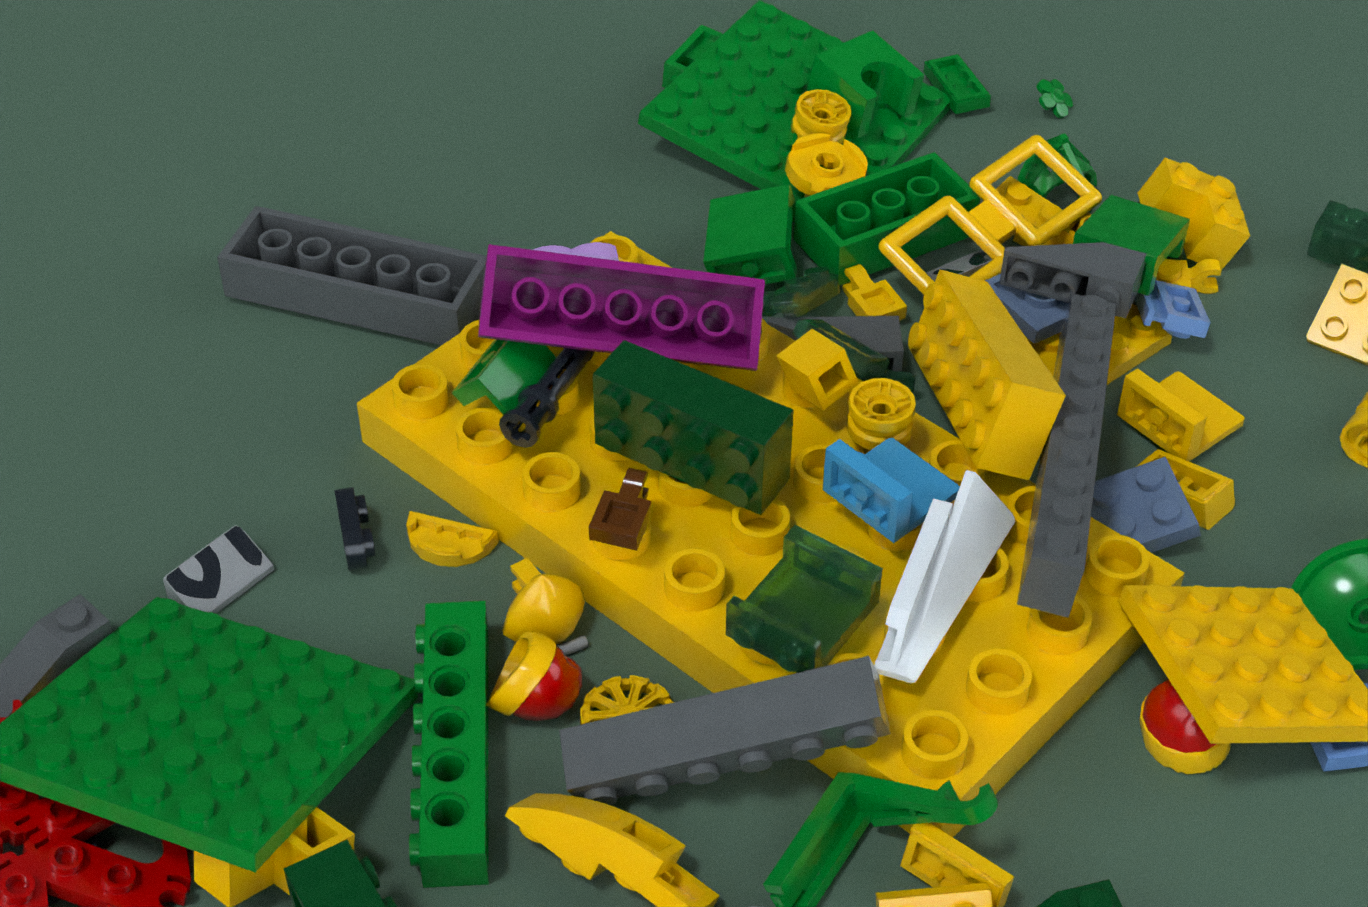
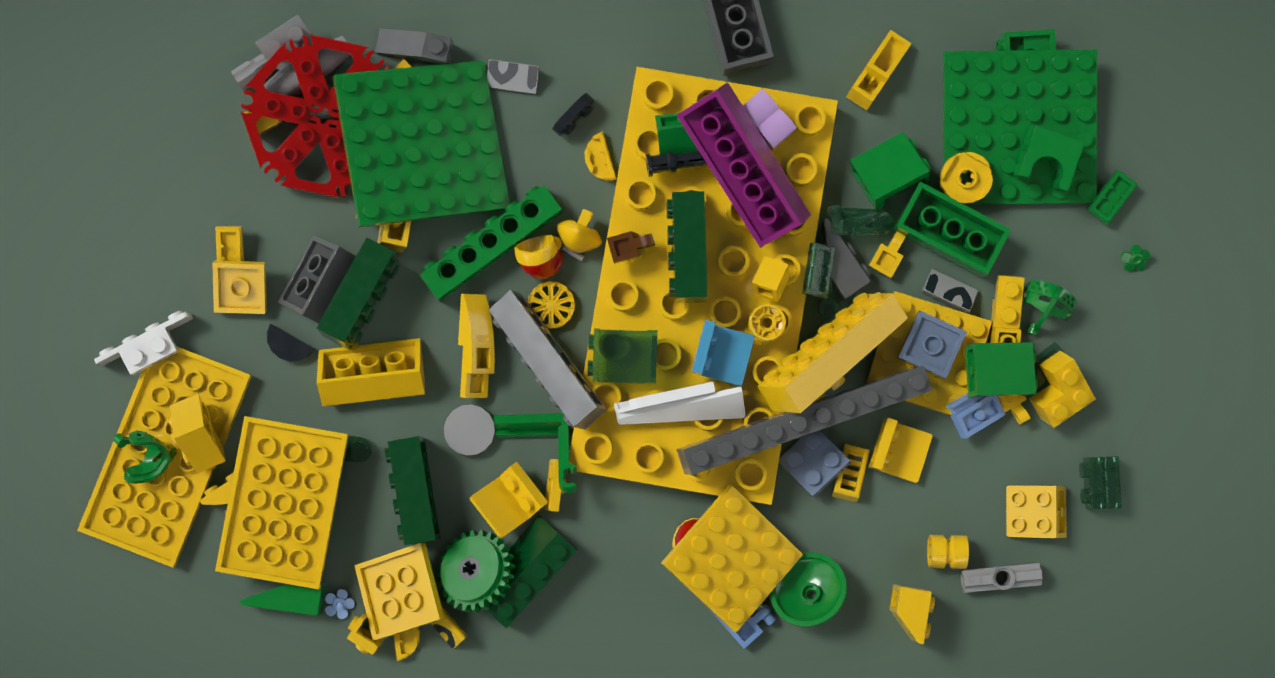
camera: 55 degrees right, 40 degrees up
(604, 199) = (878, 70): none -> yellow slope
(821, 113) = (1009, 143): yellow wheel -> none
(996, 217) = (970, 291): yellow bar -> none
(1076, 269) = (948, 365): dark grey slope -> none

